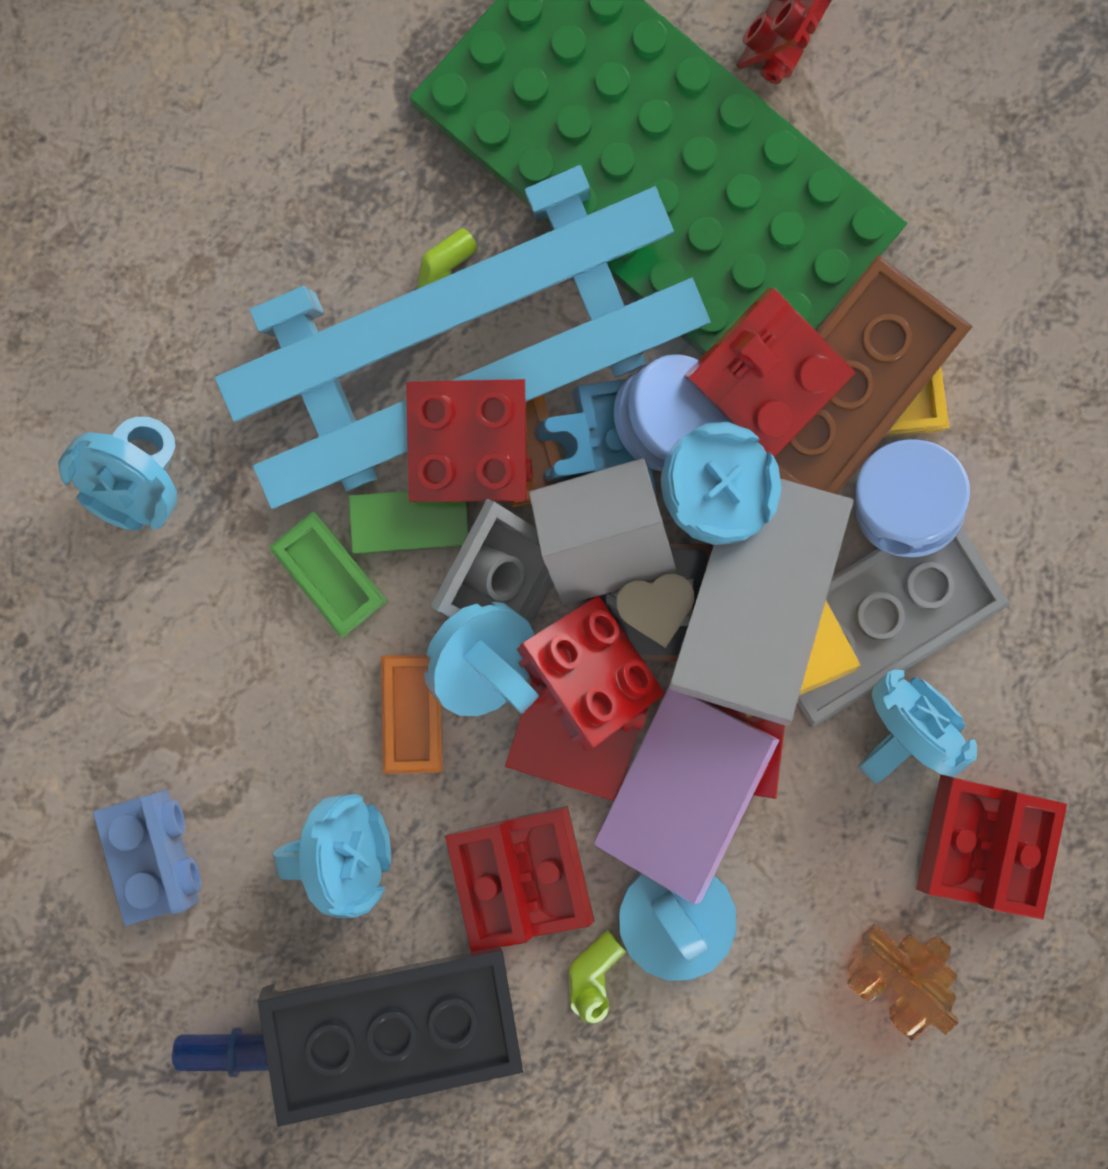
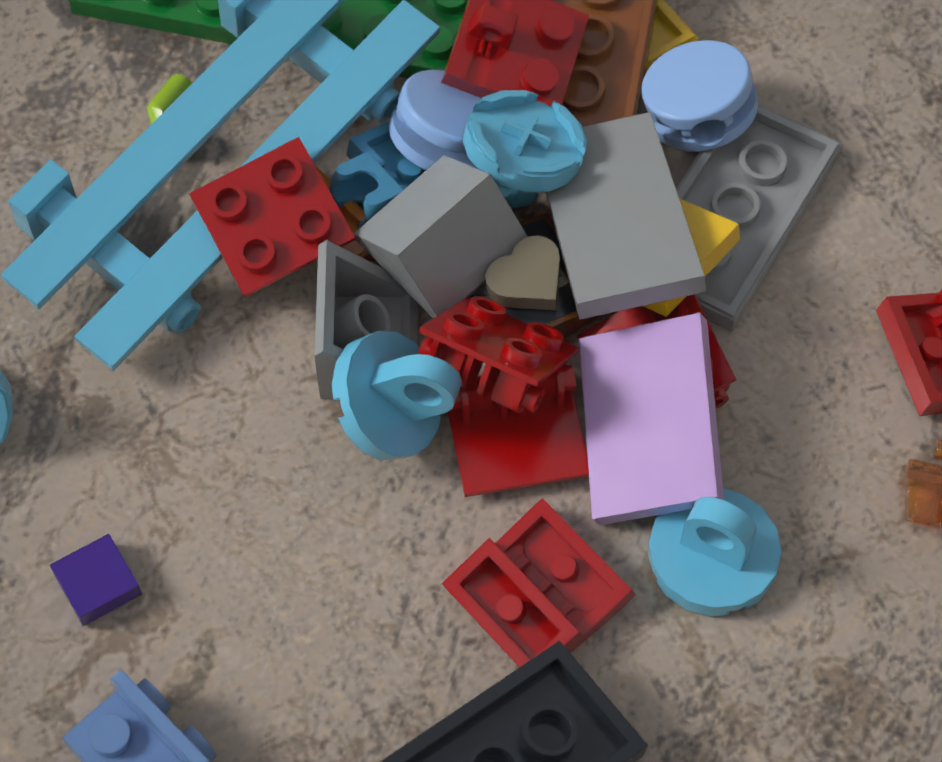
camera: 30 degrees left, 25 degrees down
(180, 685) = (95, 579): none -> dark purple tile
(328, 574) = (196, 412): bright green tile -> none
(339, 856) = (347, 633): medium azure tile -> none
(395, 525) = (250, 330): bright green tile -> none
(409, 717) = (346, 495): orange tile -> none
(587, 977) = (659, 645): lime arm -> none
(920, 726) = (825, 258): medium azure tile -> none

